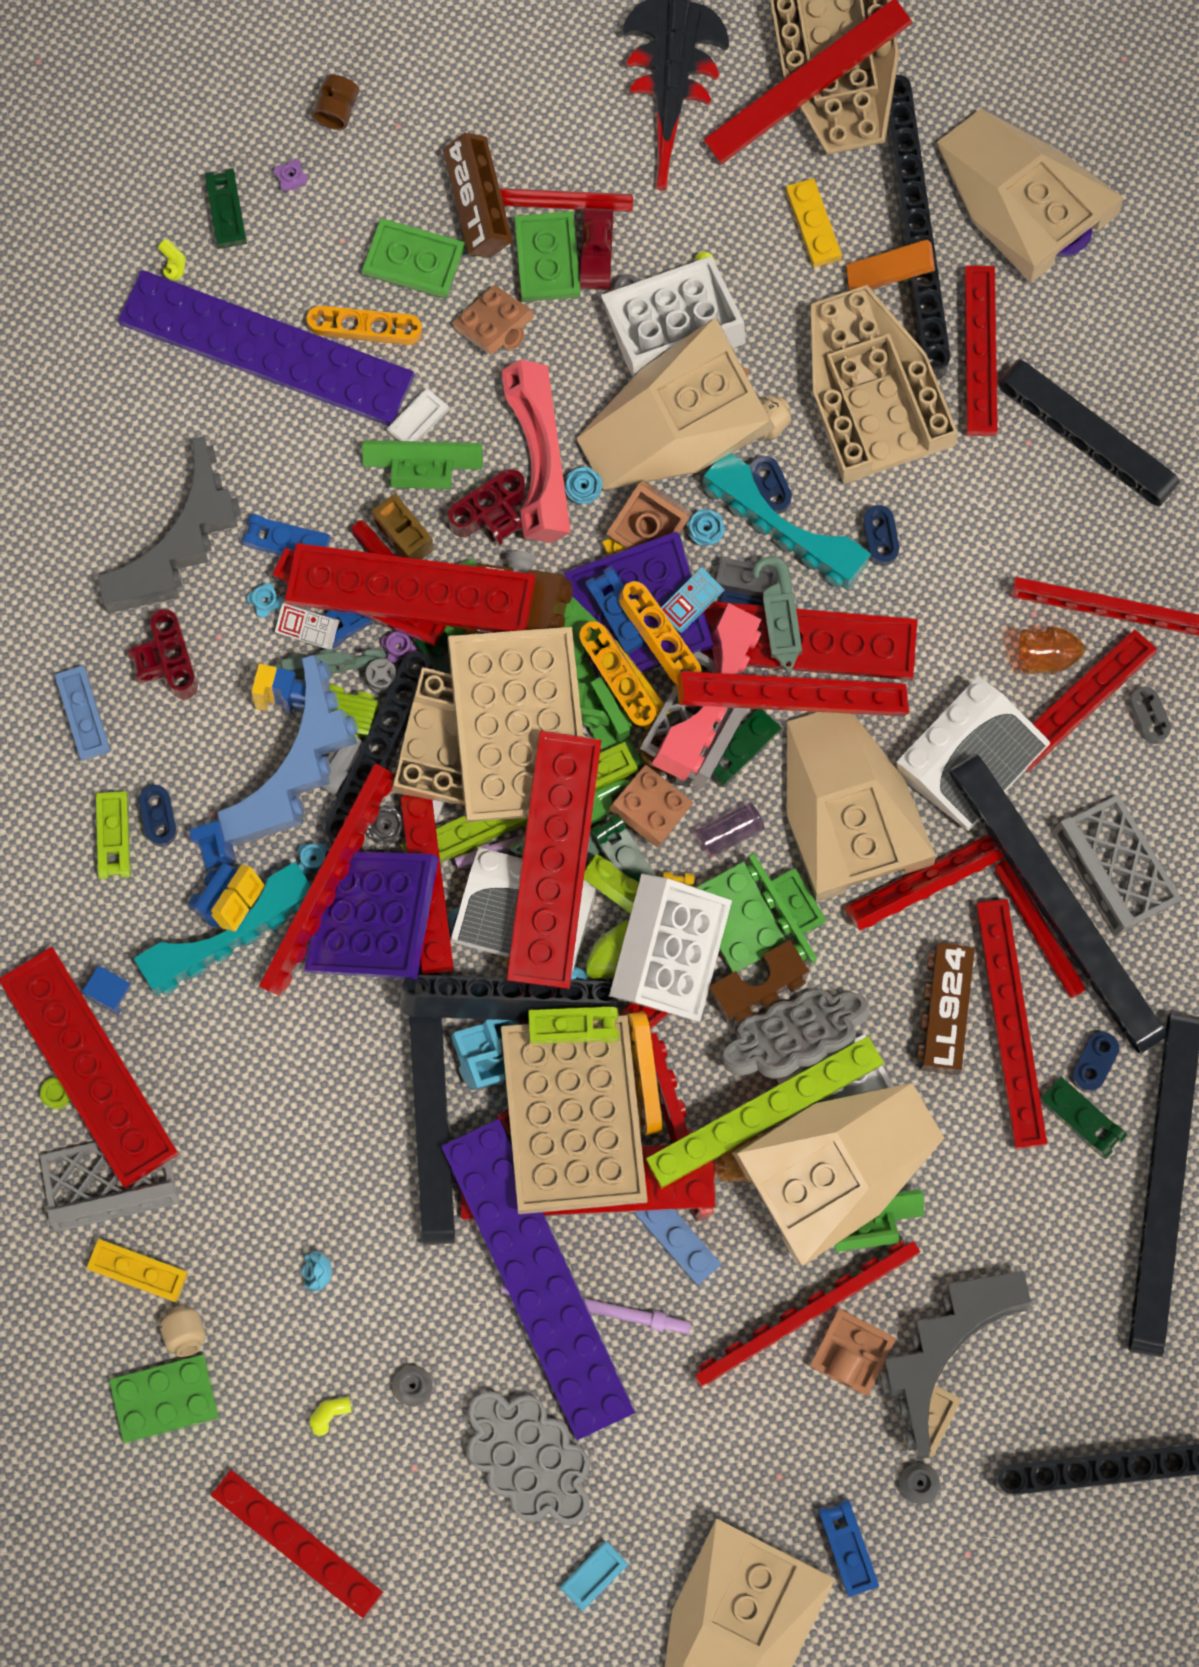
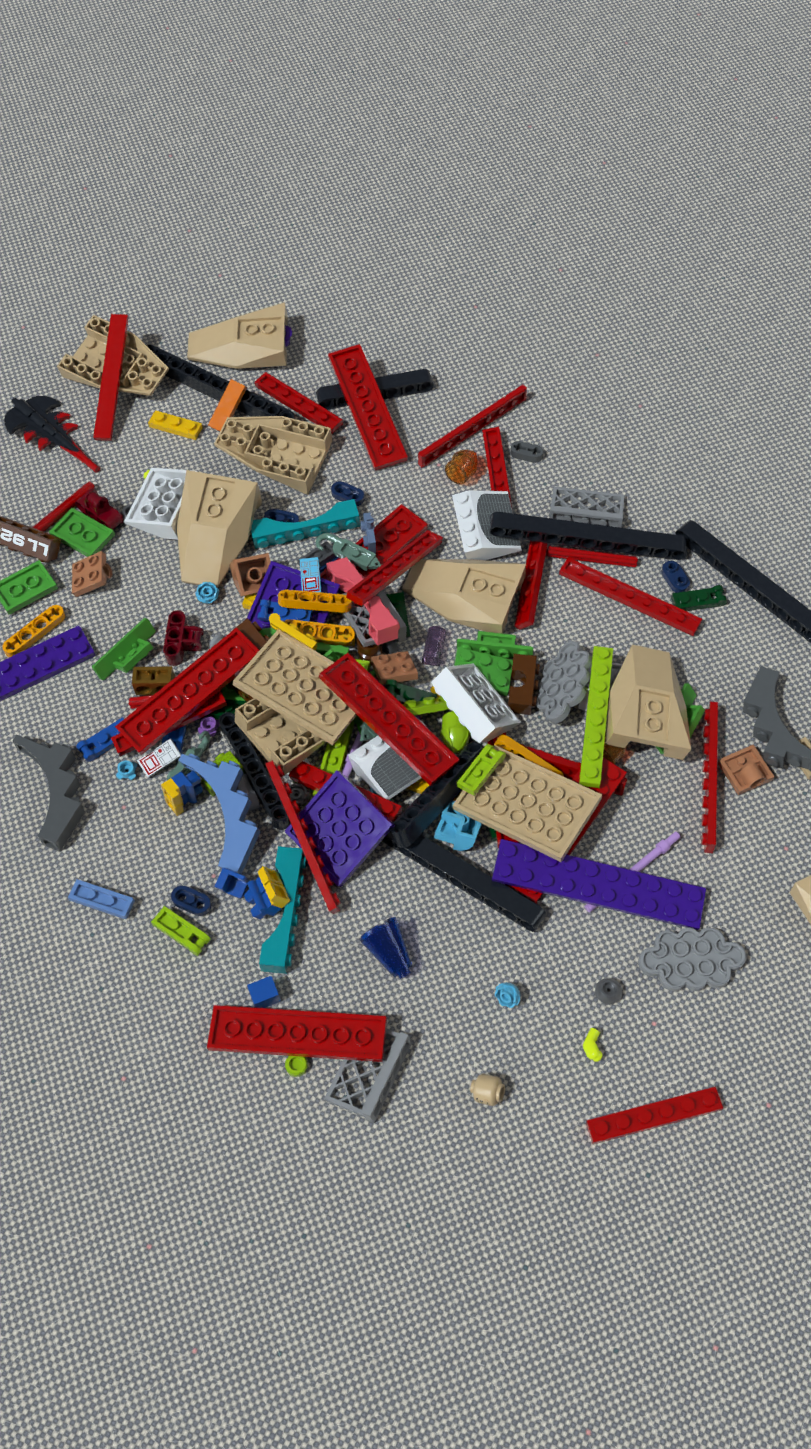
camera: 50 degrees left, 15 degrees down
(137, 1270) = (433, 1091): yellow plate -> none
(156, 658) = (107, 843): dark red piece -> none
(164, 1399) = (517, 1130): bright green plate -> none
(267, 1090) = (388, 947): none -> clear blue cone
(307, 851) = (281, 836): medium azure plate -> none
(378, 671) = (213, 742): light grey wheel -> none
(418, 417) = (103, 639): white tile -> none
(530, 396) = (197, 610): coral arch -> none
(583, 647) = (292, 630): none -> yellow plate
(594, 1576) = (779, 972): medium azure tile -> none
(680, 1243) = (628, 810): medium blue plate -> none
(705, 518) = (280, 554): medium azure plate -> none
(835, 607) = (368, 527): none -> sand blue plate
(947, 1008) = (601, 616): reddish brown brick -> none
(1039, 449) = (367, 407): none -> red plate

